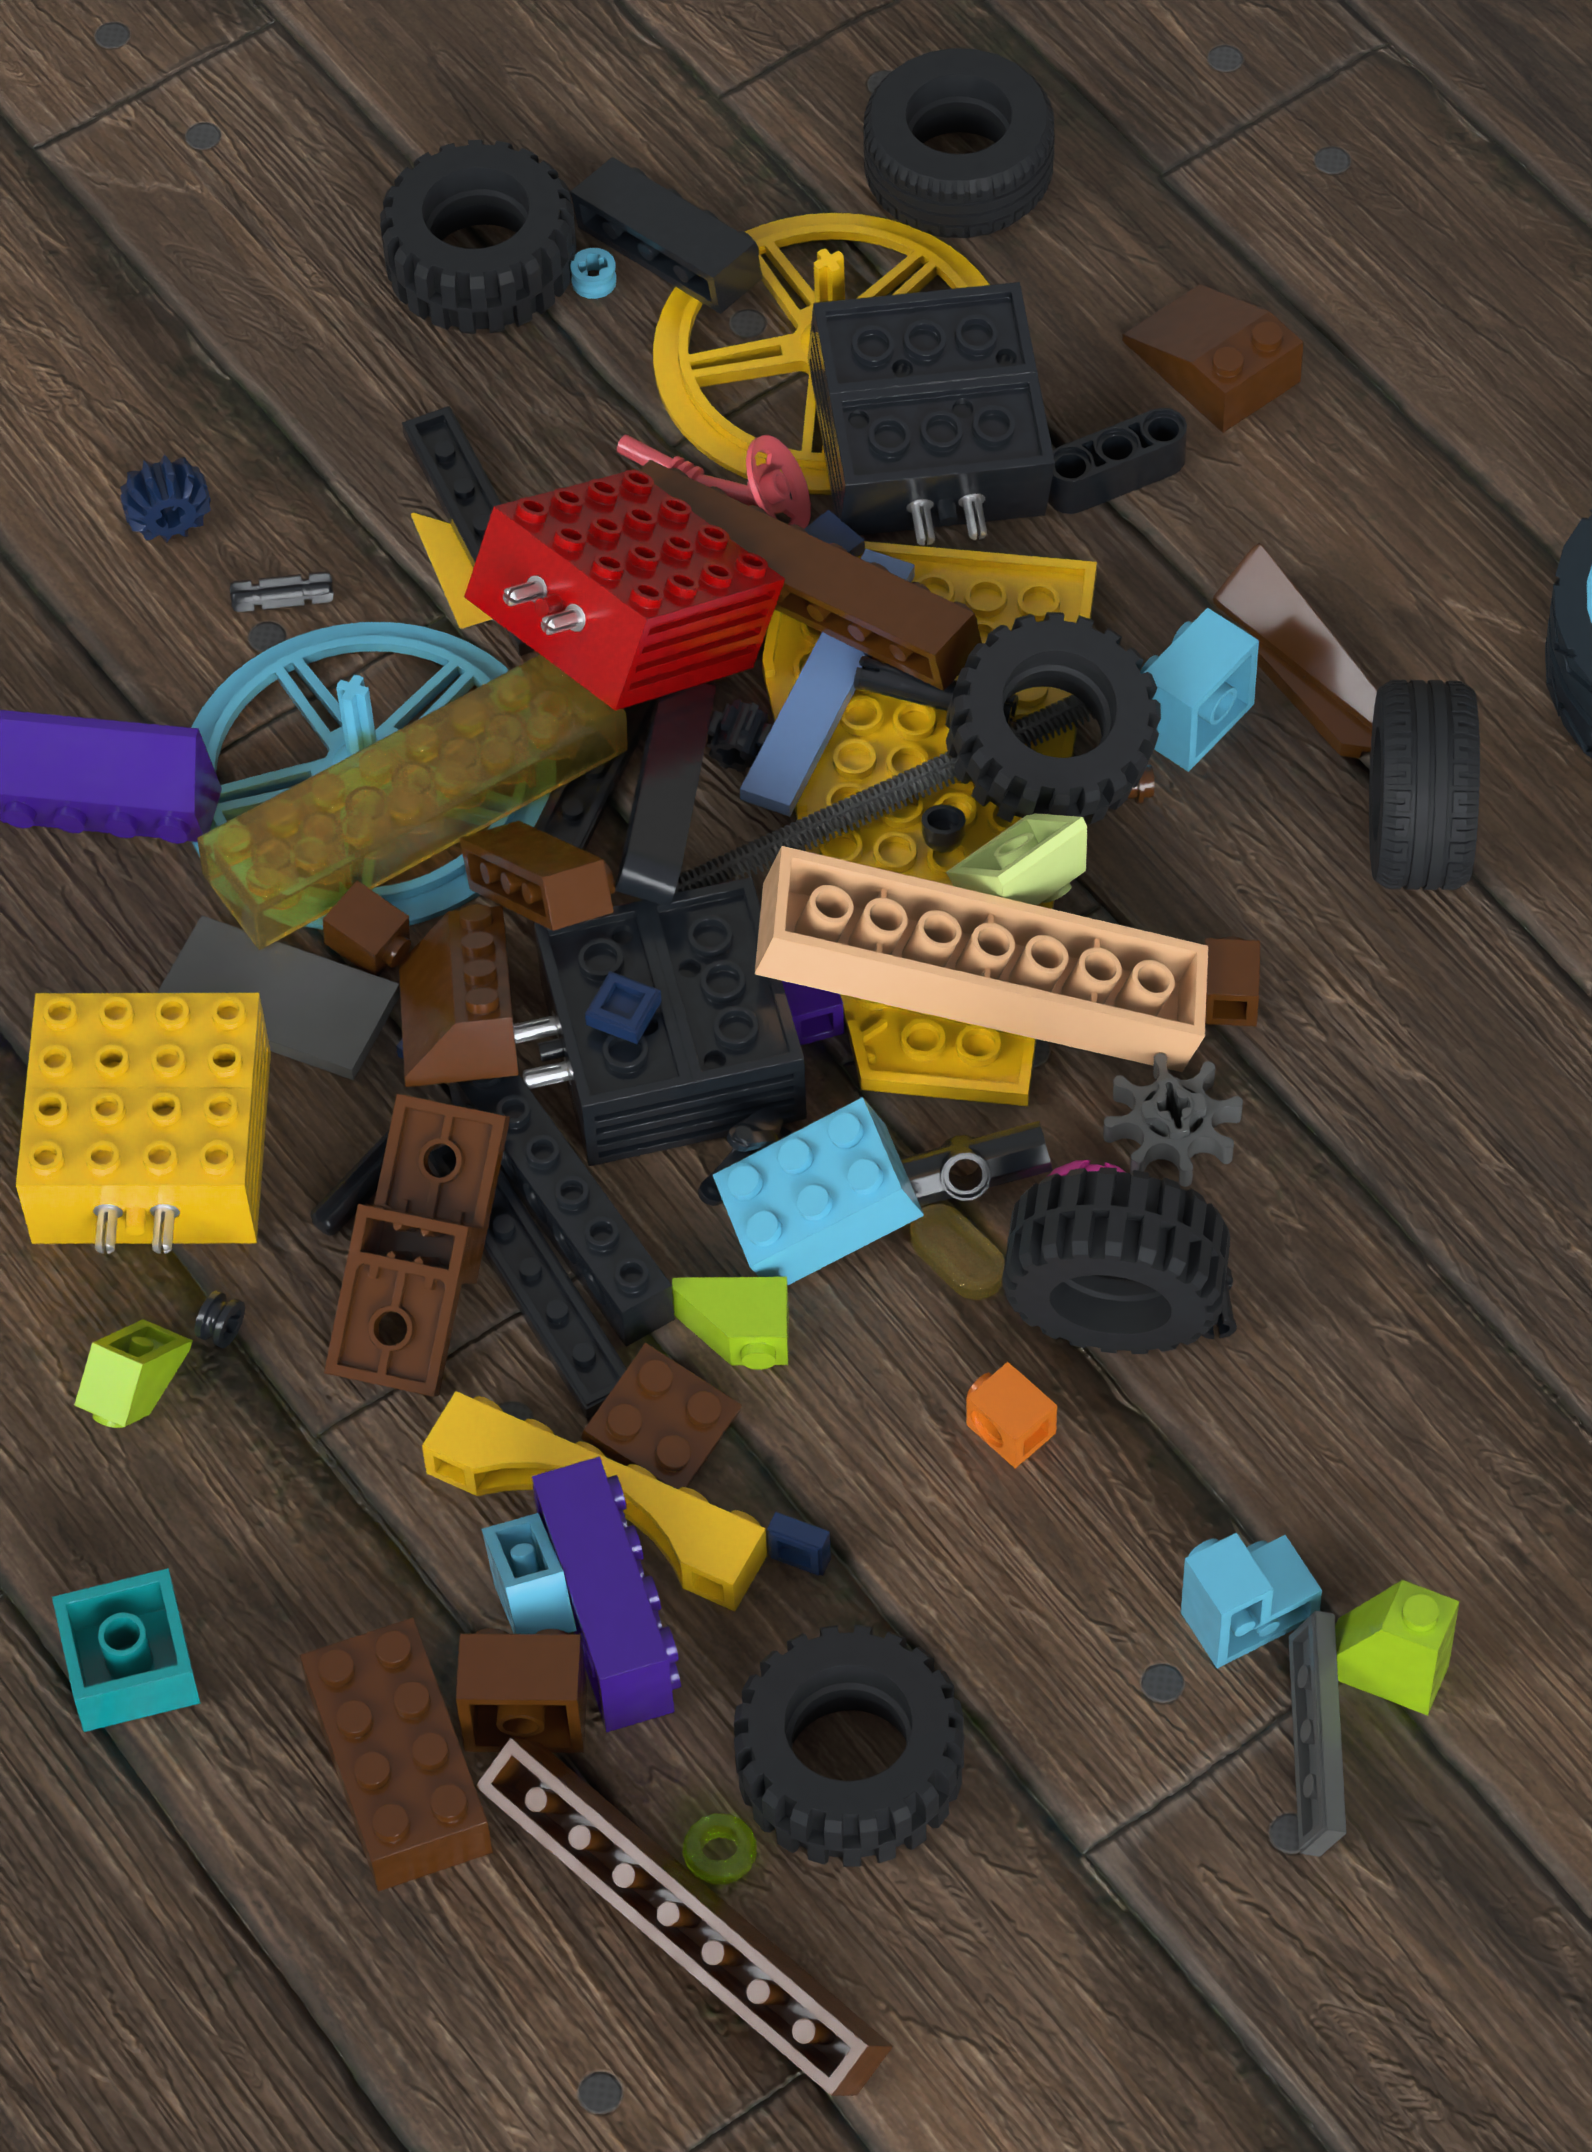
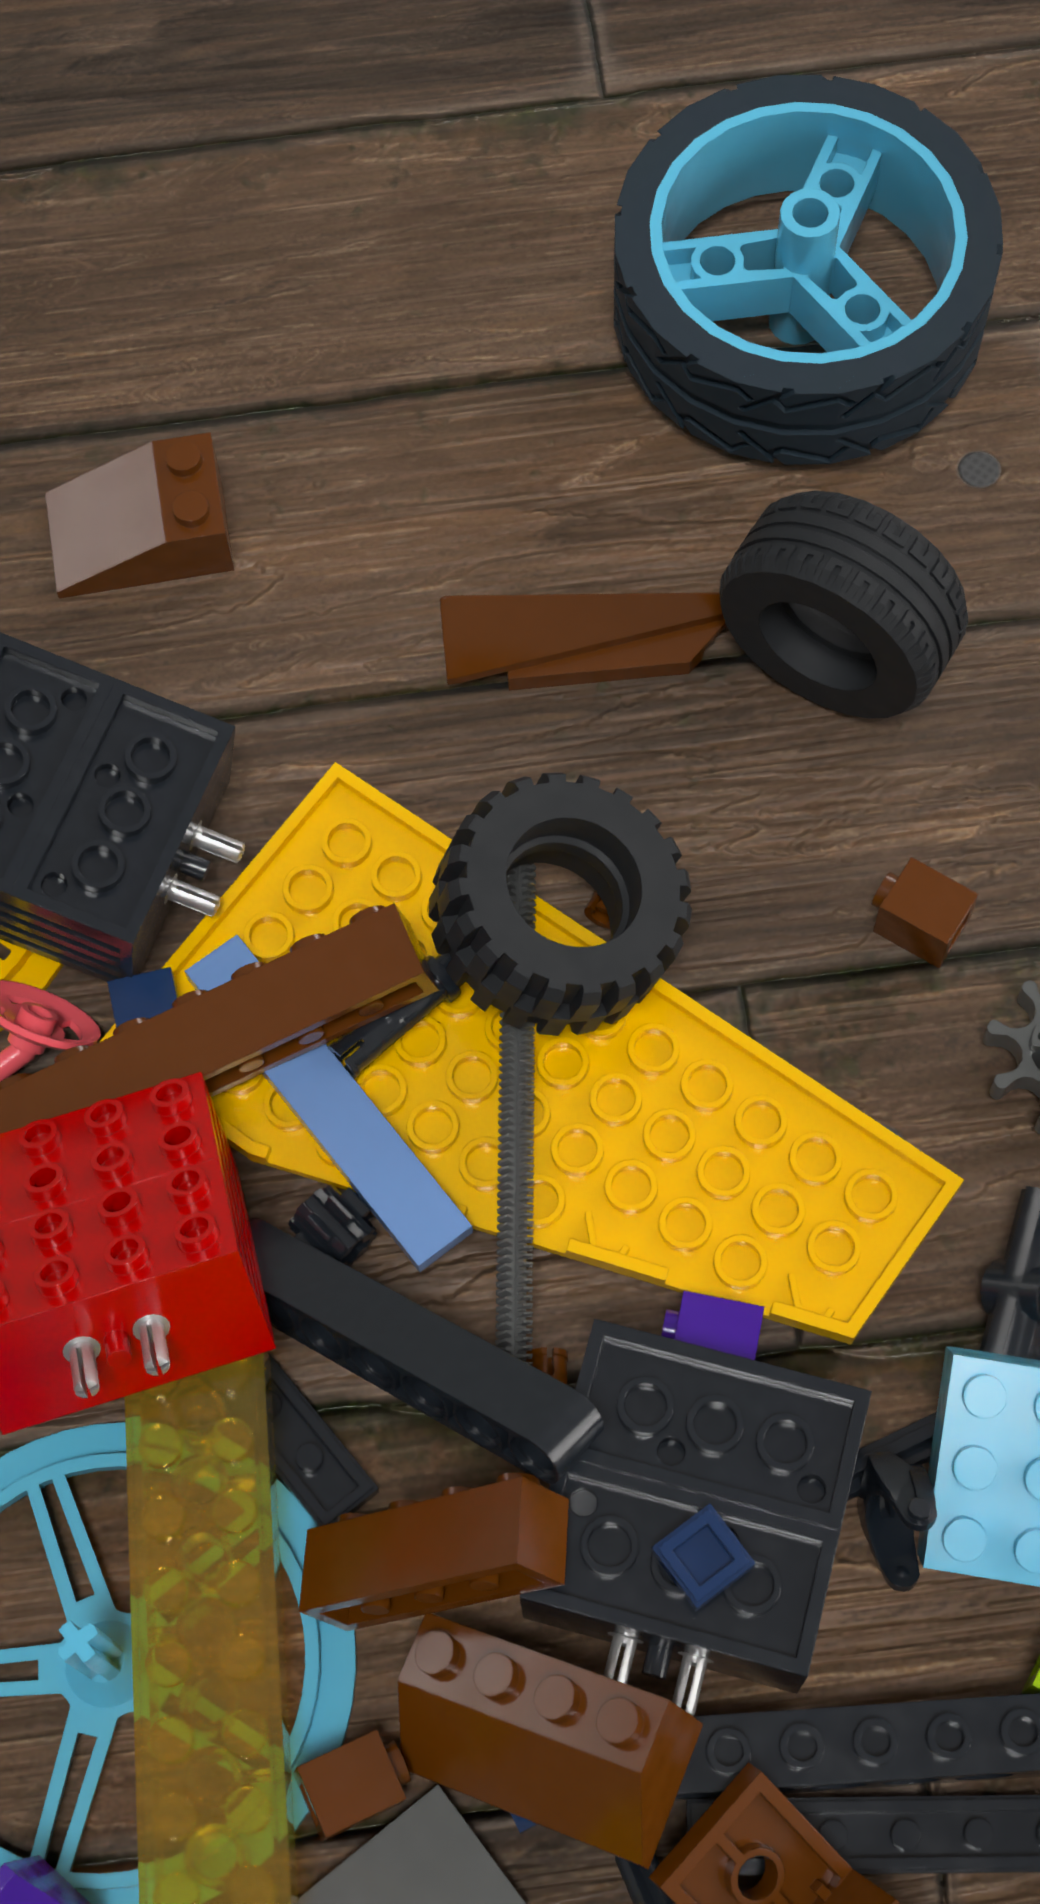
camera: 60 degrees left, 10 degrees up
(943, 828) = (587, 1080): black hinge -> none
(981, 959) = (817, 1147): light nougat brick -> none
(1028, 860) = (715, 1034): yellowish green slope -> none
(1118, 460) = (221, 652): black beam -> none
(1202, 686) = (563, 728): medium azure brick -> none

